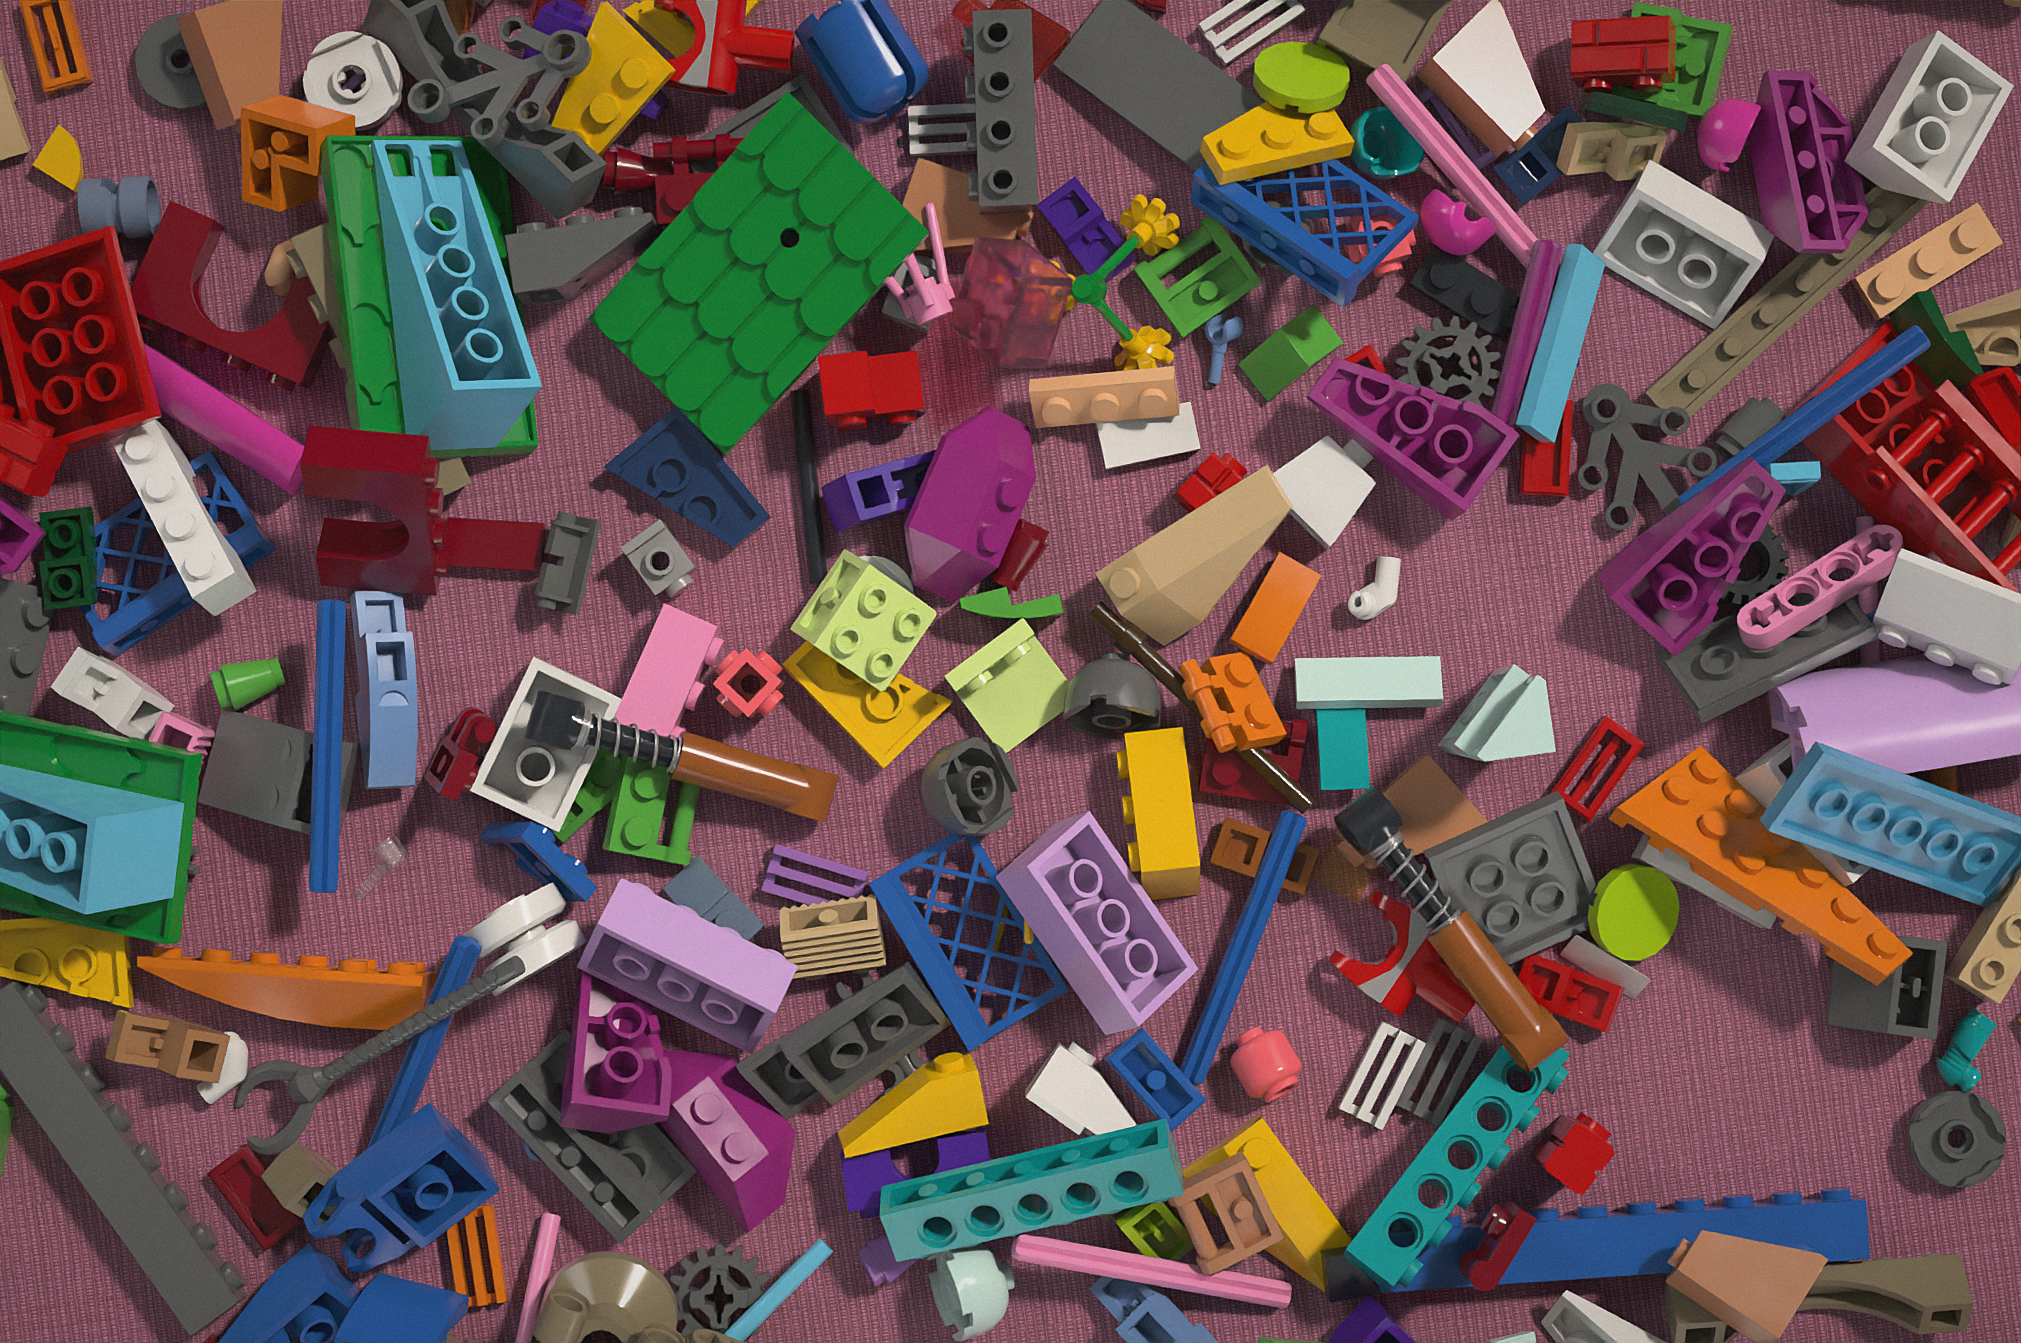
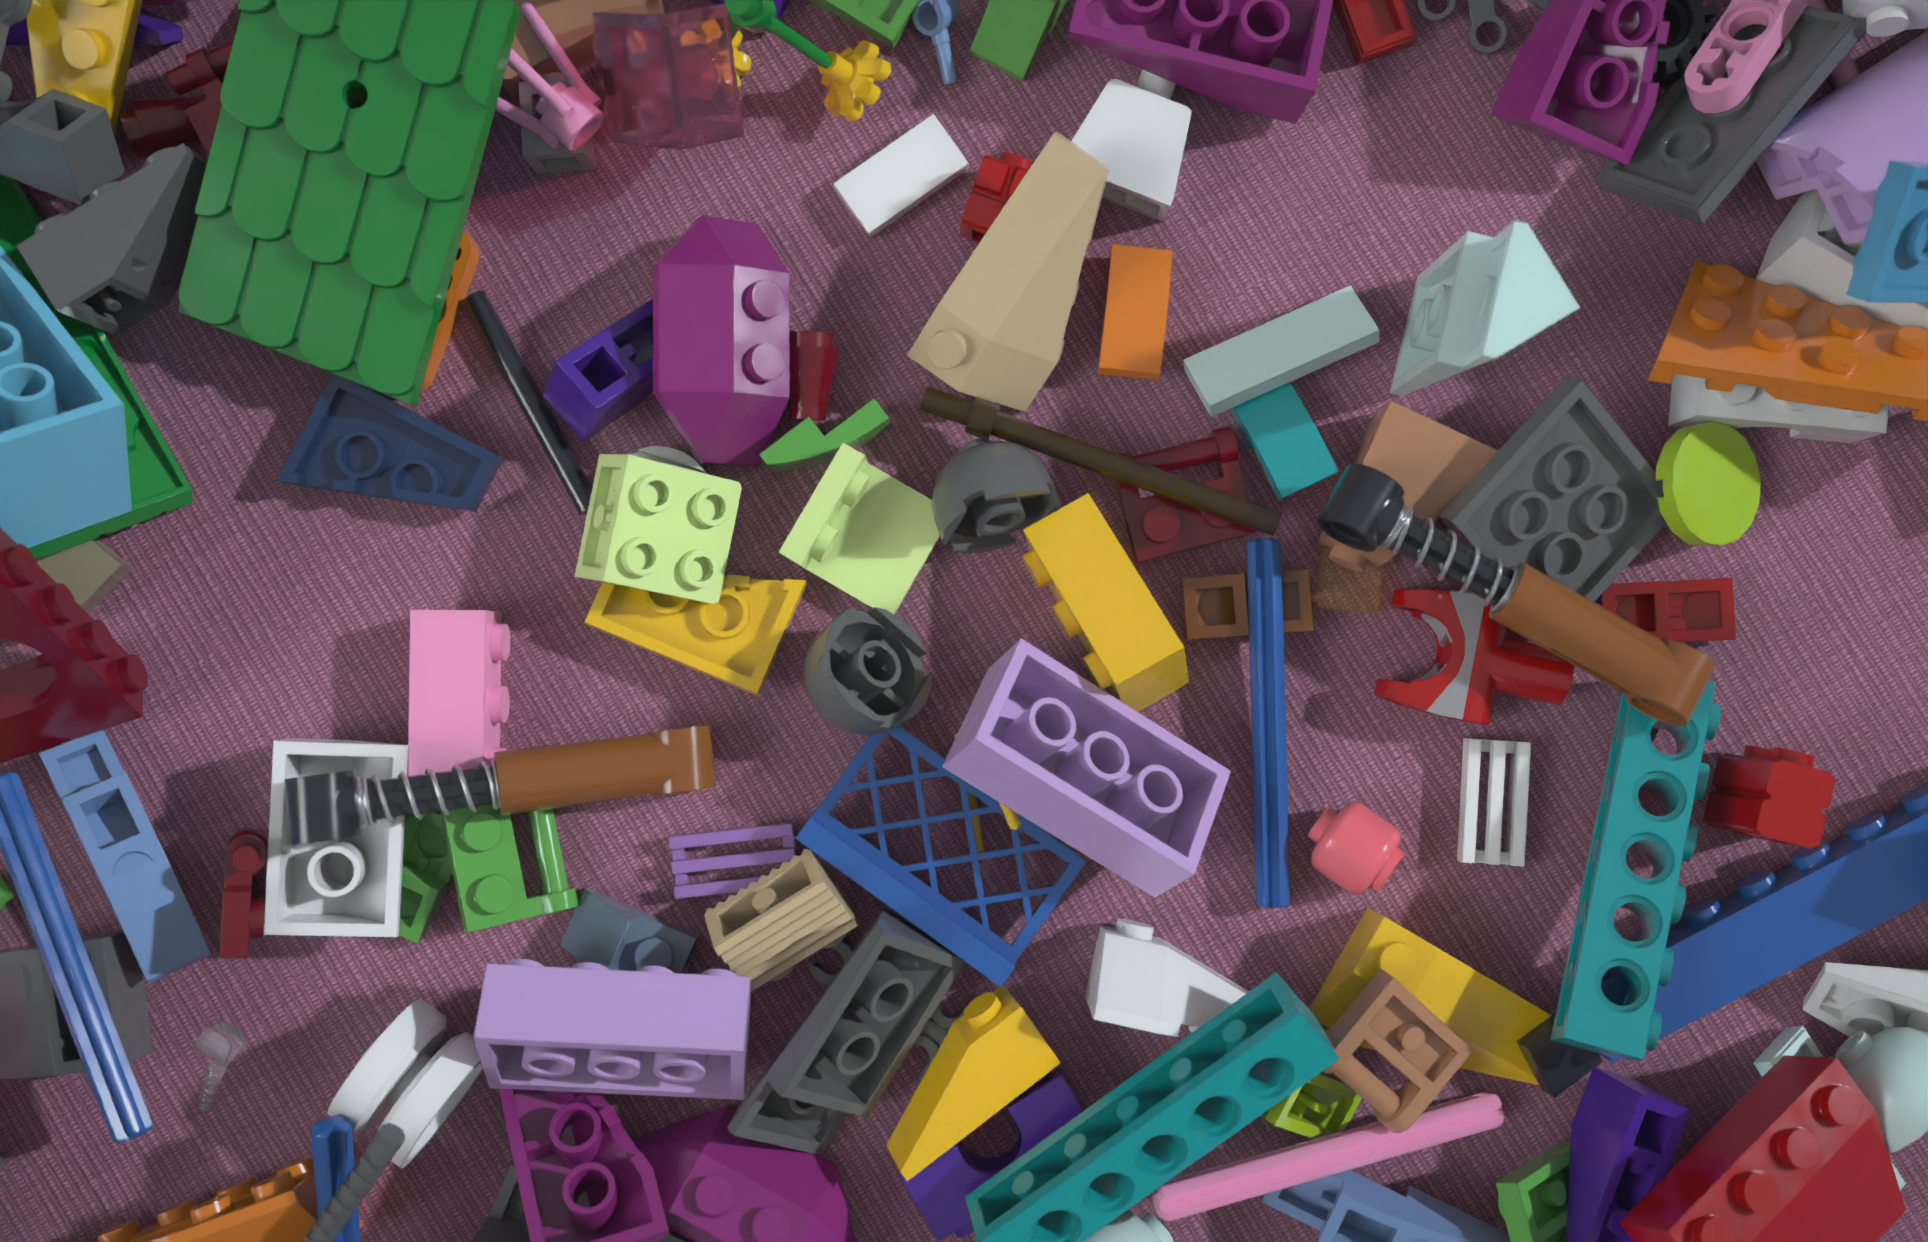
camera: 25 degrees left, 0 degrees up
(495, 544) = (192, 626): dark red tile -> none
(542, 858) = (380, 966): blue wing -> none
(564, 584) = (288, 639): dark grey hinge -> none
(660, 540) = (367, 550): light grey brick -> none
(731, 676) = (533, 668): coral brick -> none
(871, 388) = (547, 255): red brick -> none
(1104, 397) = (830, 147): light nougat plate -> none
(1155, 1079) = (1234, 922): blue slope -> none
(1232, 702) = (1134, 439): orange plate -> none
(1379, 594) = (1249, 243): white arm -> none
(1457, 1034) = (1580, 771): flat silver tile -> none
(1505, 1233) = (1755, 933): dark red plate -> none
(1604, 966) = (1698, 562): white sticker -> none
(1613, 778) = (1611, 337): red tile -> none

